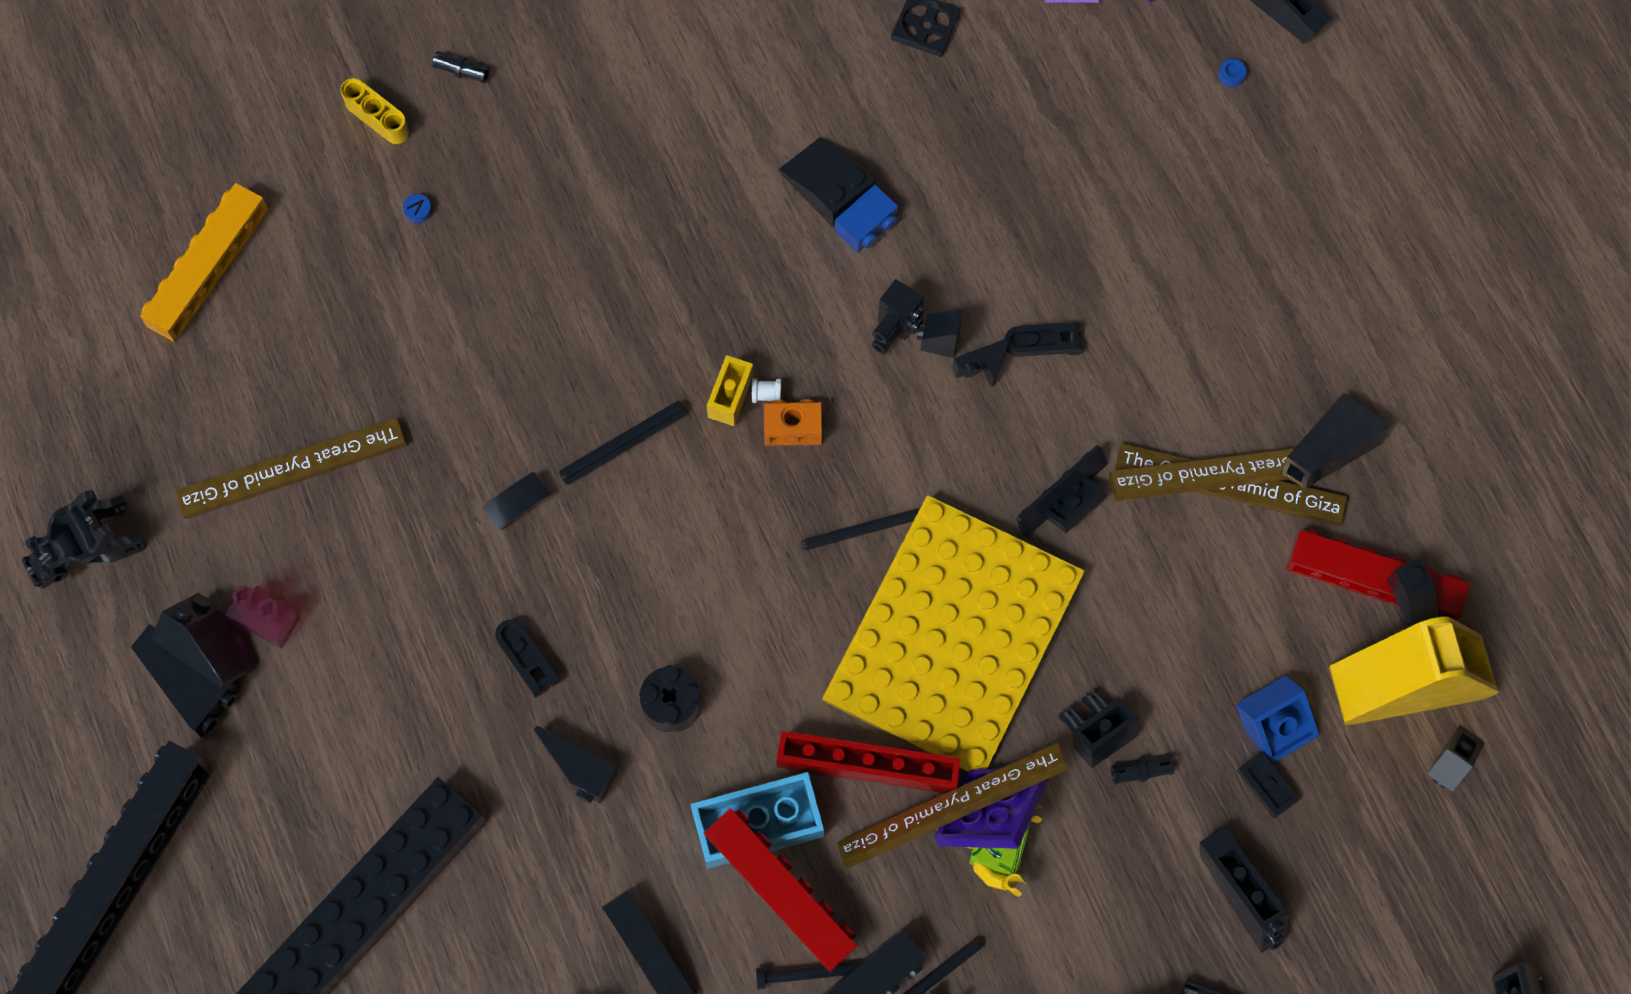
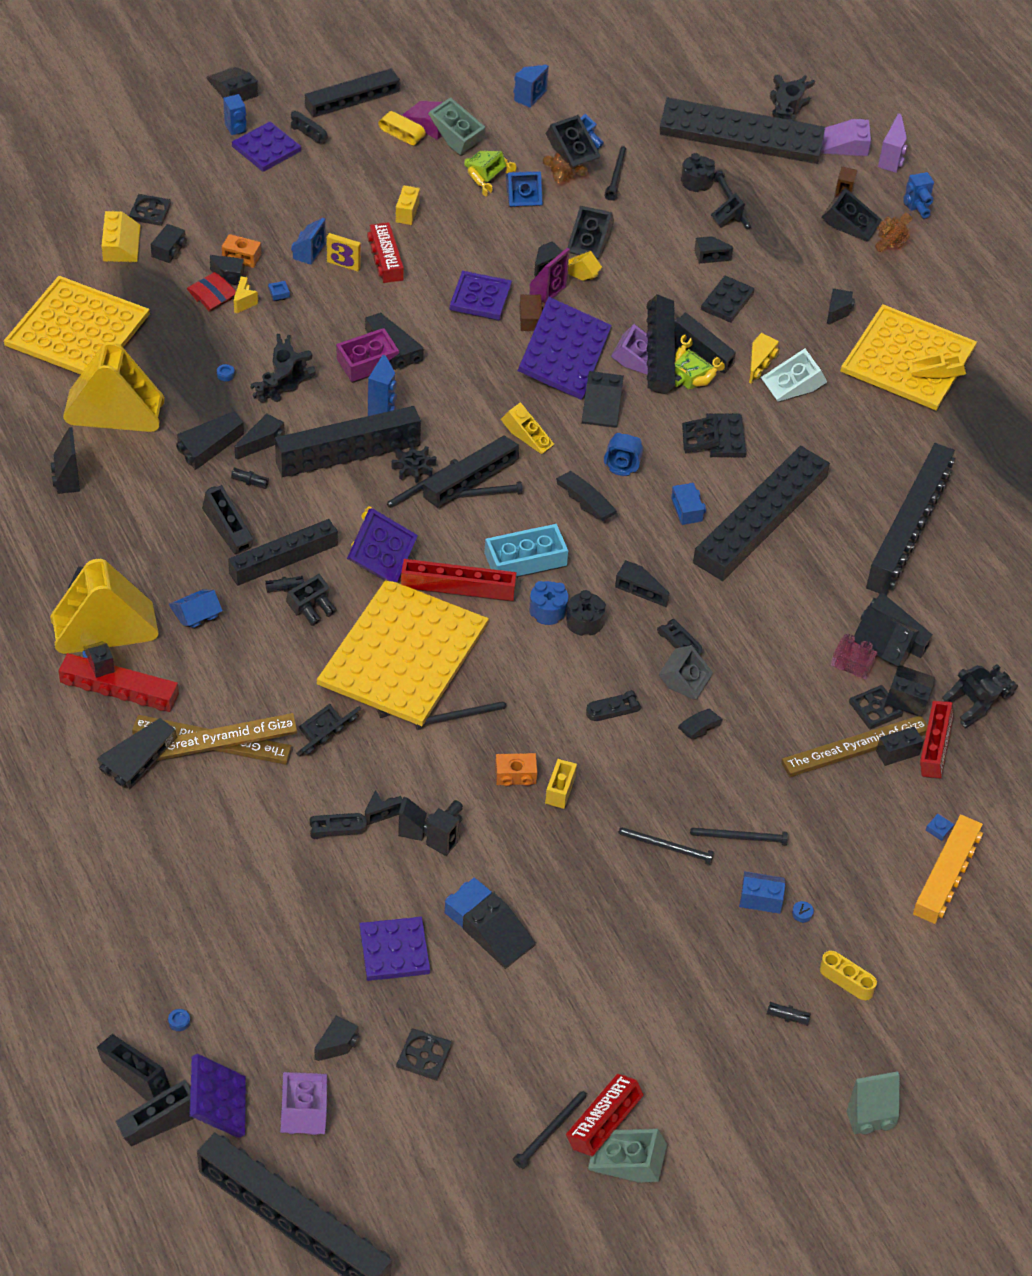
camera: 175 degrees right, 20 degrees down
(169, 461) = (936, 739): none -> red brick
(185, 555) = (910, 690): none -> black slope
(199, 334) = (939, 827): none -> blue plate
(227, 454) = (899, 746): none -> black brick
(255, 555) = (869, 695): none -> black piece
(466, 234) = (762, 892): none -> blue slope
(478, 936) = (688, 503): none -> blue piece
(483, 322) = (740, 835): none -> black bar
(527, 591) = (686, 672): none -> dark grey slope
(534, 287) = (667, 845): none -> black bar
(622, 442) = (632, 761): black axle -> none
(642, 538) = (613, 706): none -> black plate
(741, 729) = (548, 602): none -> blue brick
(766, 390) = (535, 790): white bush -> none
(779, 889) = (511, 509): red brick -> none
(952, 805) = (405, 550): pearl gold tile -> none
(963, 163) = (394, 948): none -> dark purple plate
(1033, 36) = (337, 1039): none -> black slope
(1148, 827) = (283, 552): none -> black brick
(1268, 785) = (205, 574): black plate -> none

